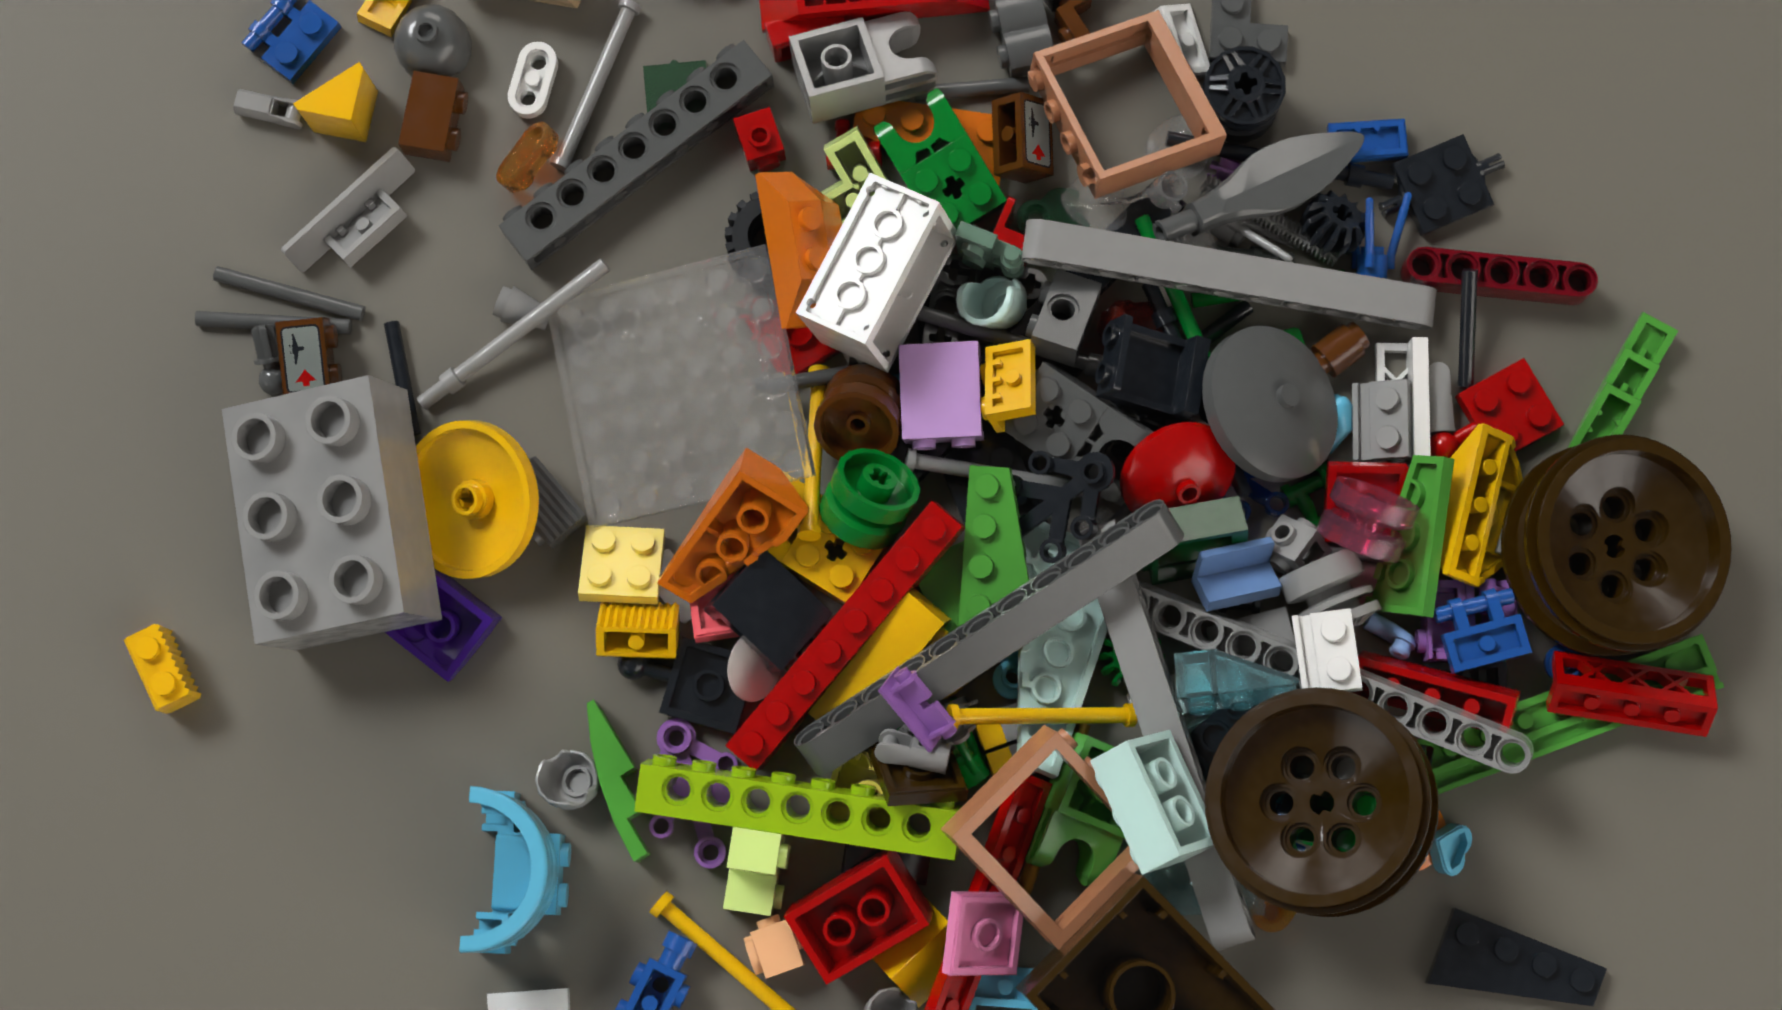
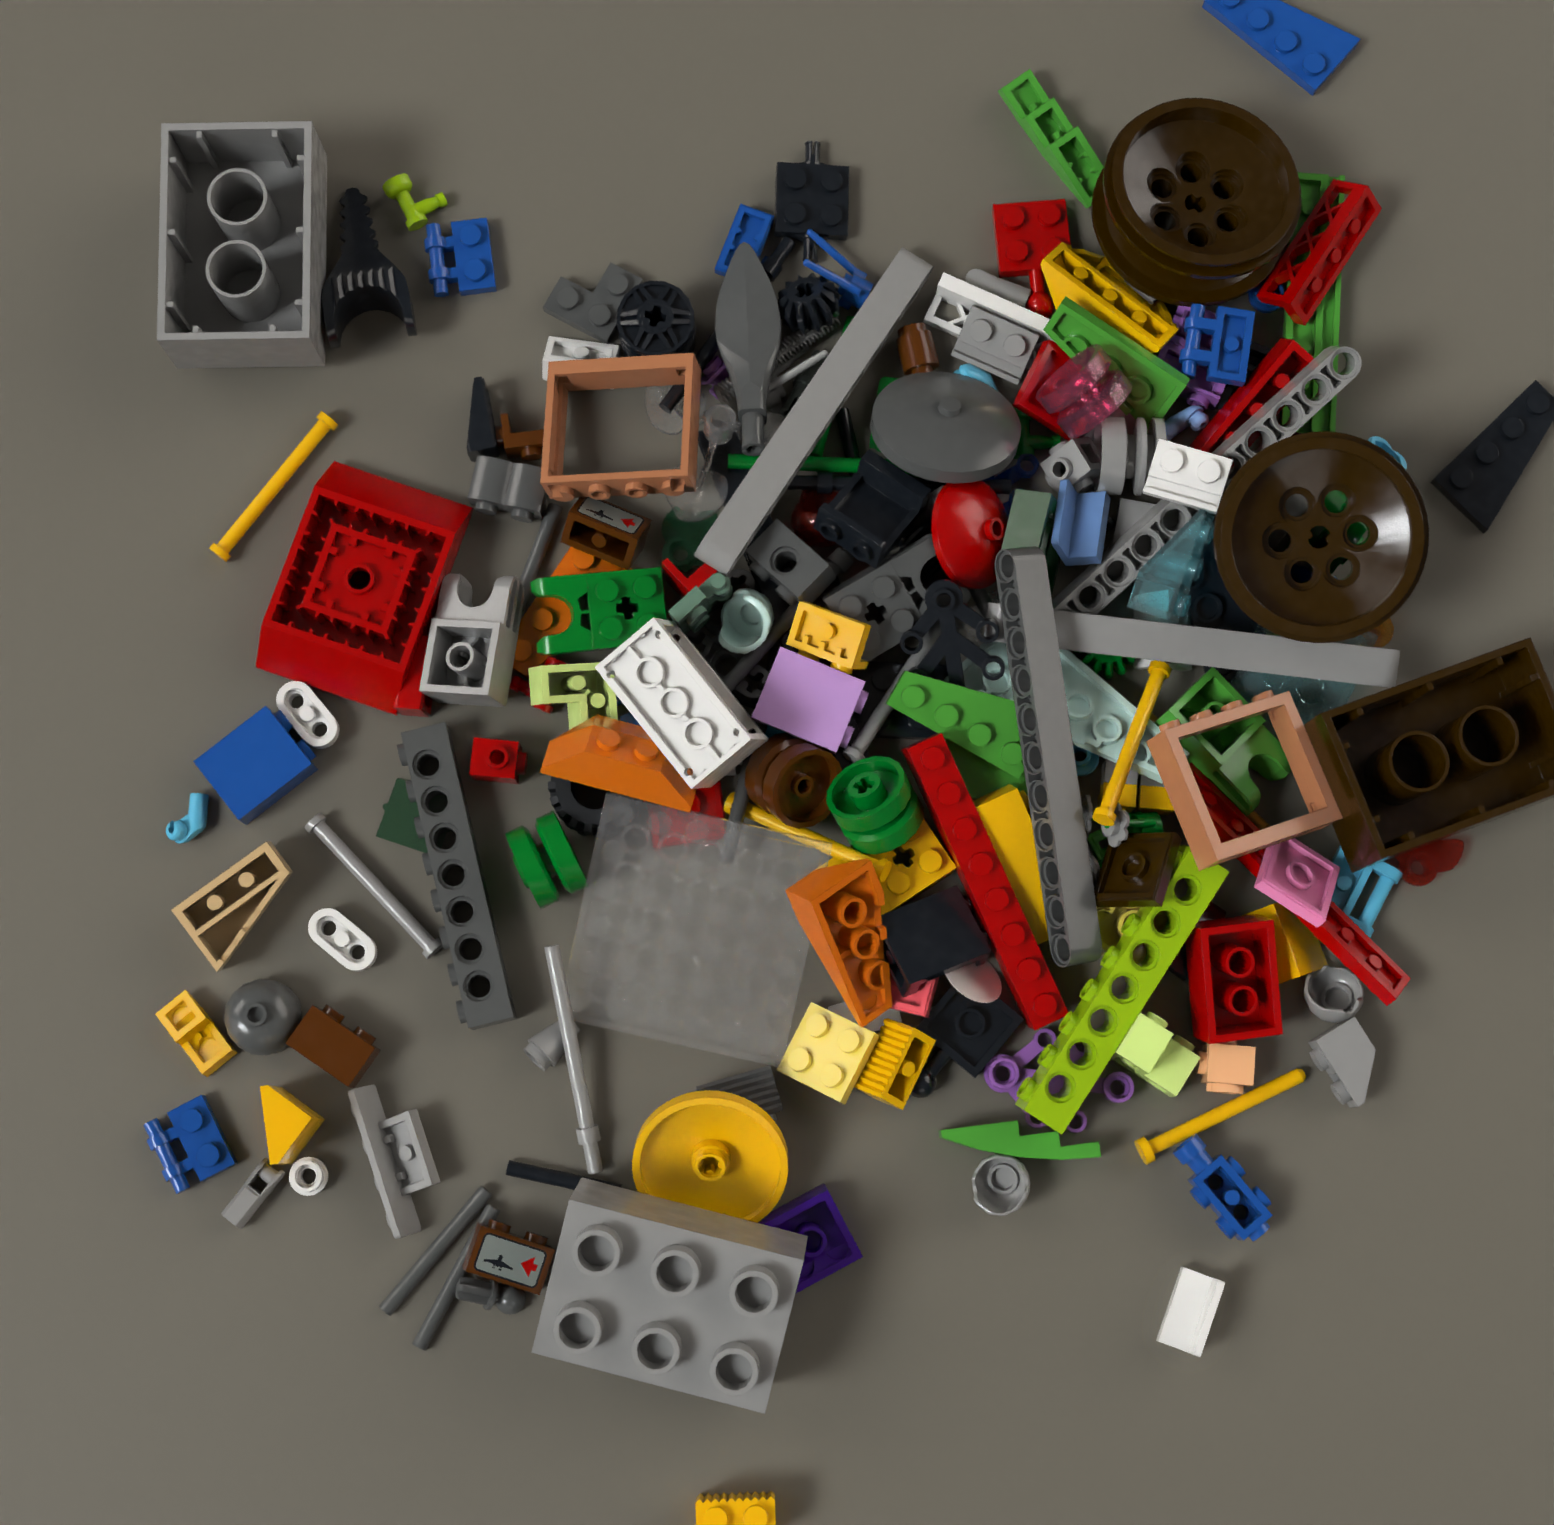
camera: 70 degrees left, 0 degrees up
(301, 141) = (296, 1176): none -> white plate
(524, 876) = (1073, 1262): medium azure piece -> none
(527, 157) = (413, 975): clear orange plate -> none
(684, 223) = (546, 860): none -> green wheel
(905, 749) = (1120, 863): light grey bar -> none
(908, 698) = (1077, 845): medium lavender hinge -> none
(1154, 800) = (1257, 676): light aqua brick -> none
(1467, 327) = (948, 236): black bar -> none
(1514, 267) = (915, 175): dark red beam -> none

